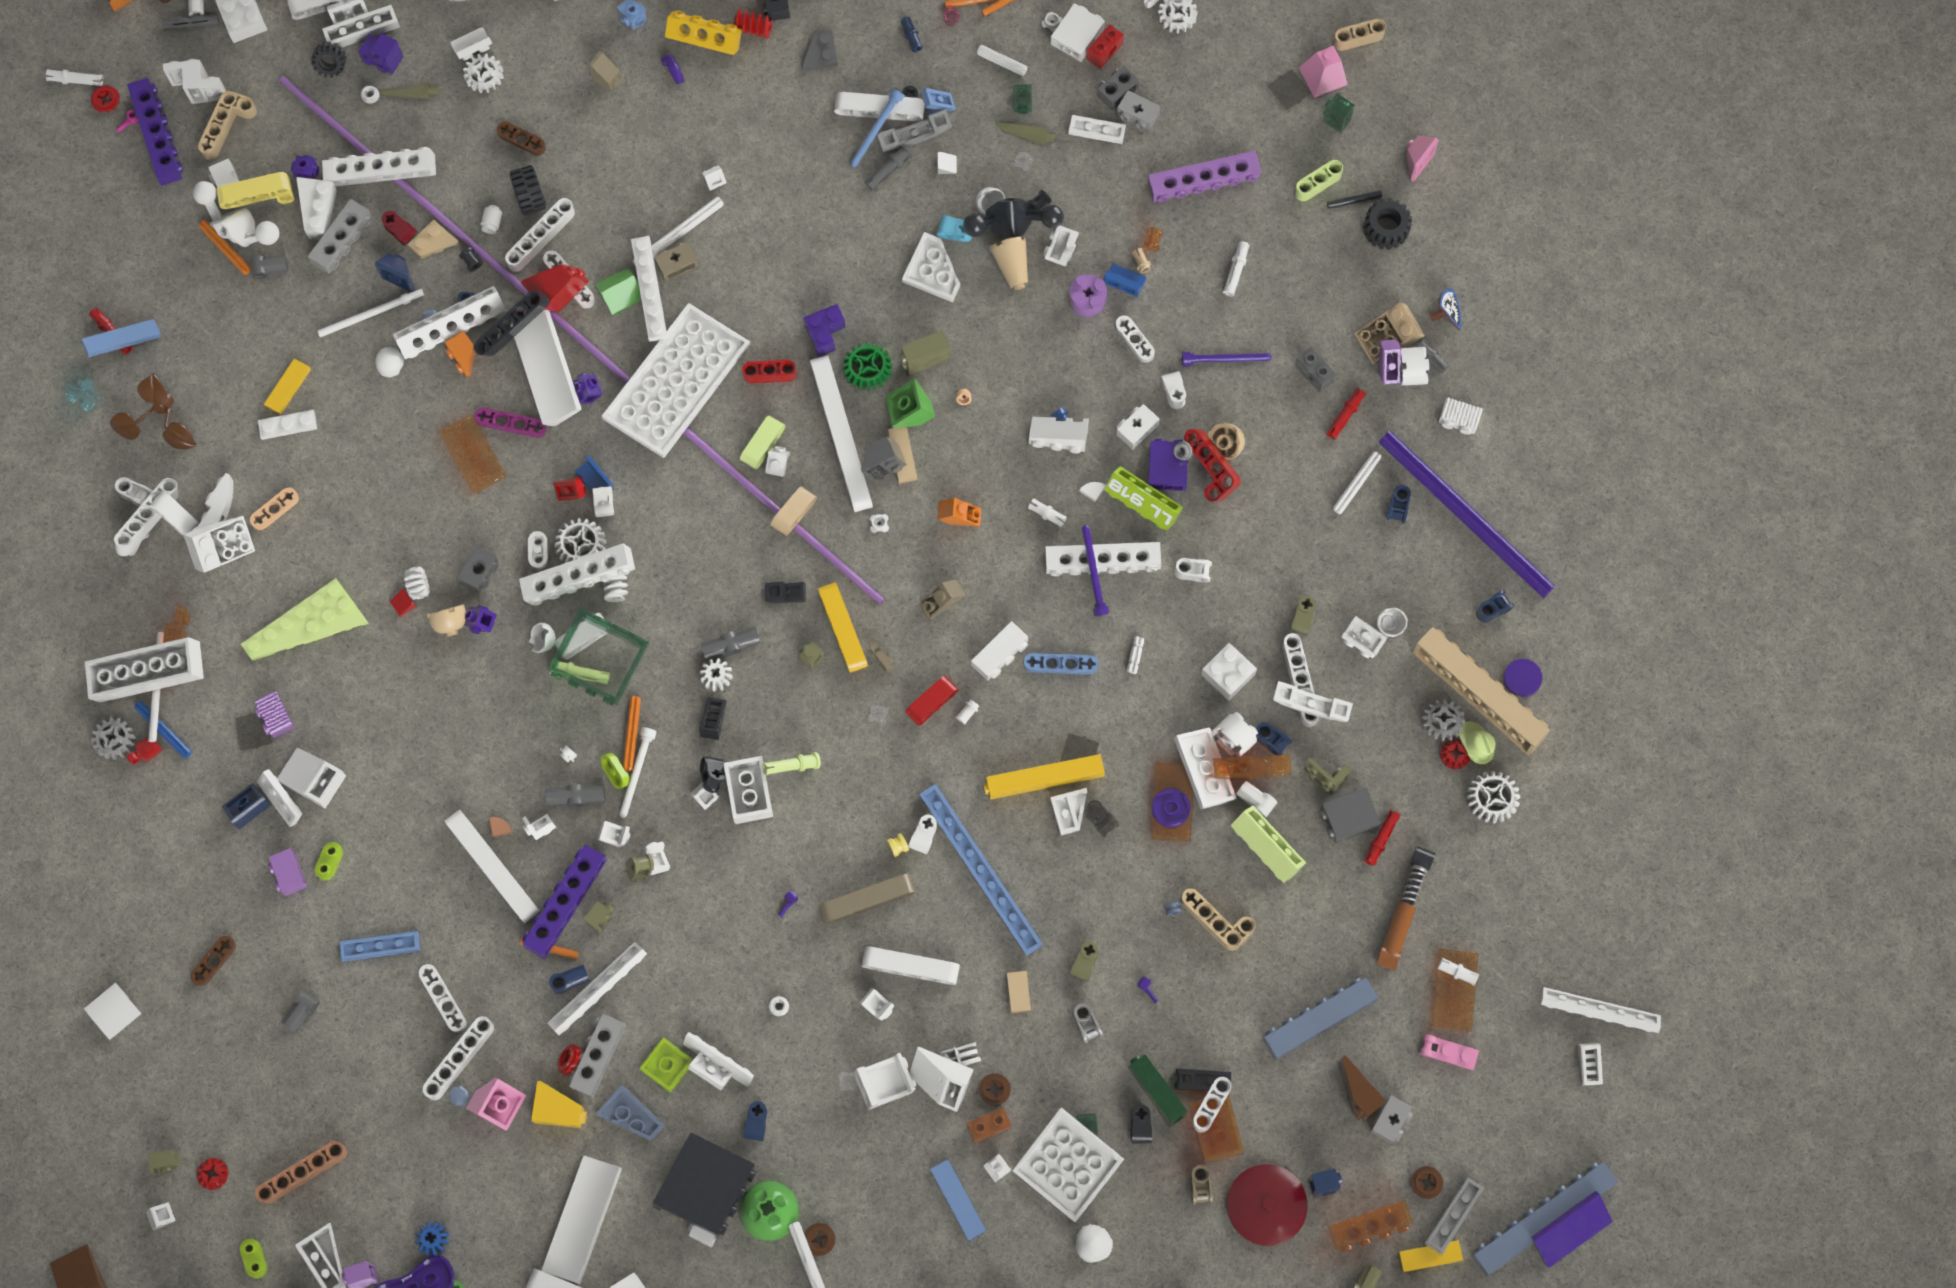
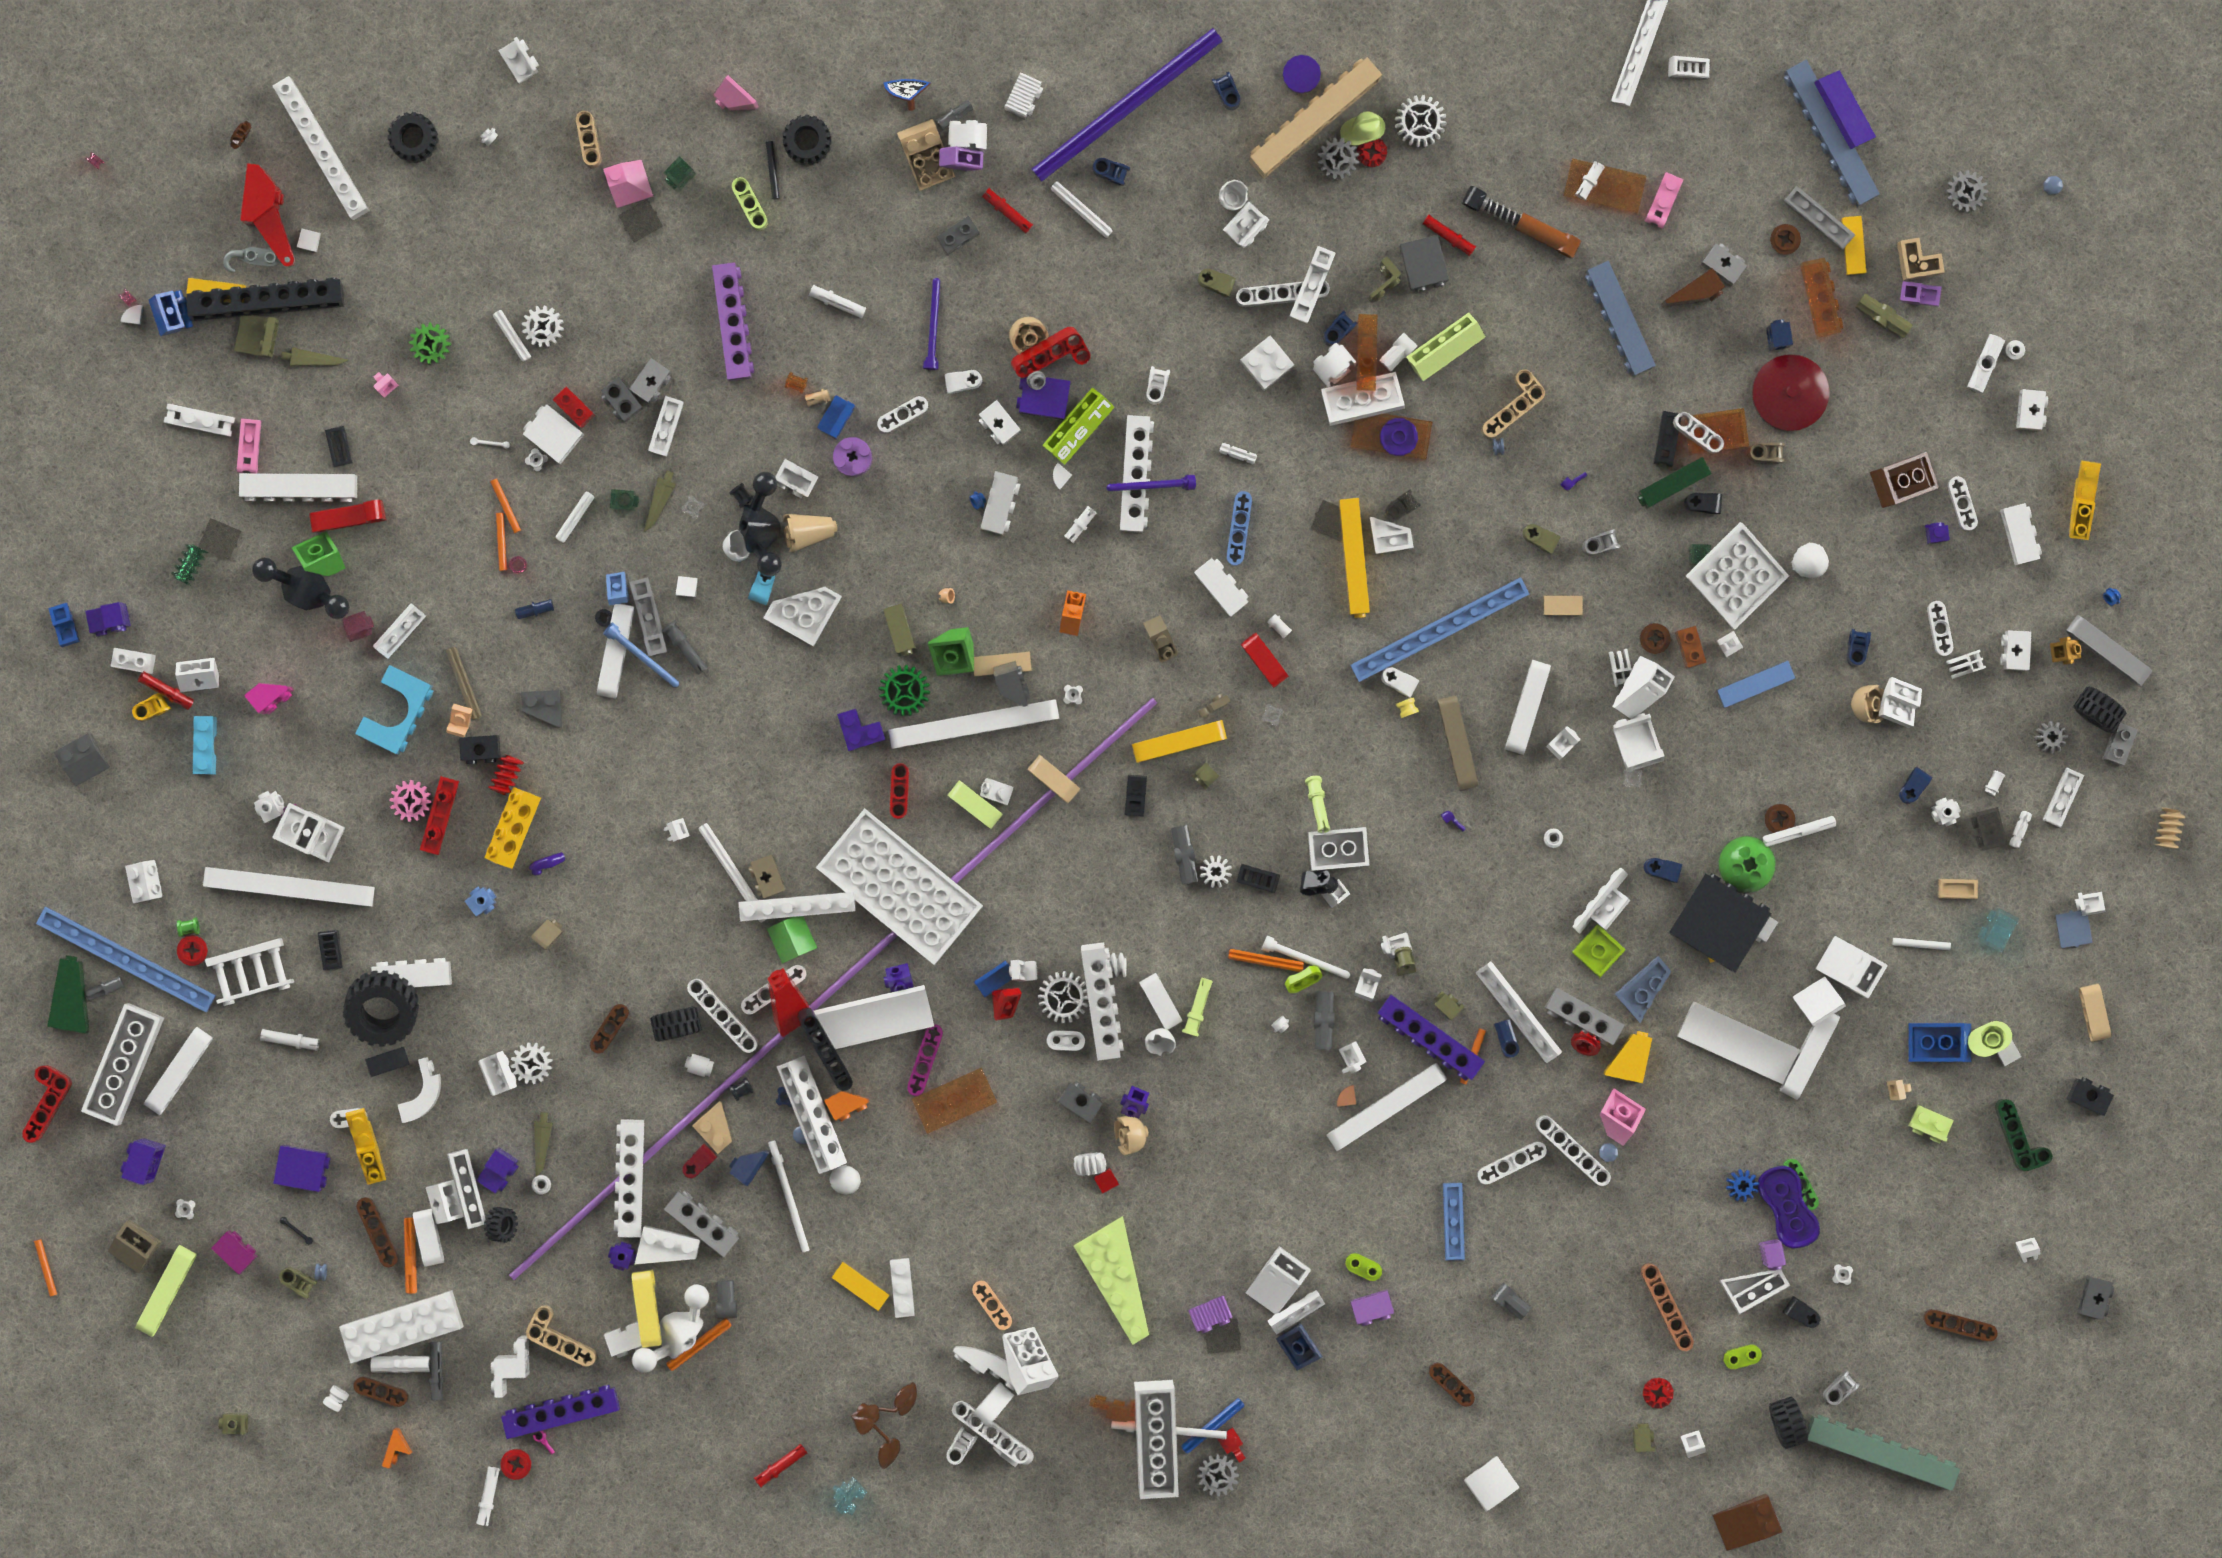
camera: 90 degrees left, 15 degrees up
(121, 338) = (792, 1453): medium blue tile -> none
(610, 628) = (1220, 996): clear green window -> none

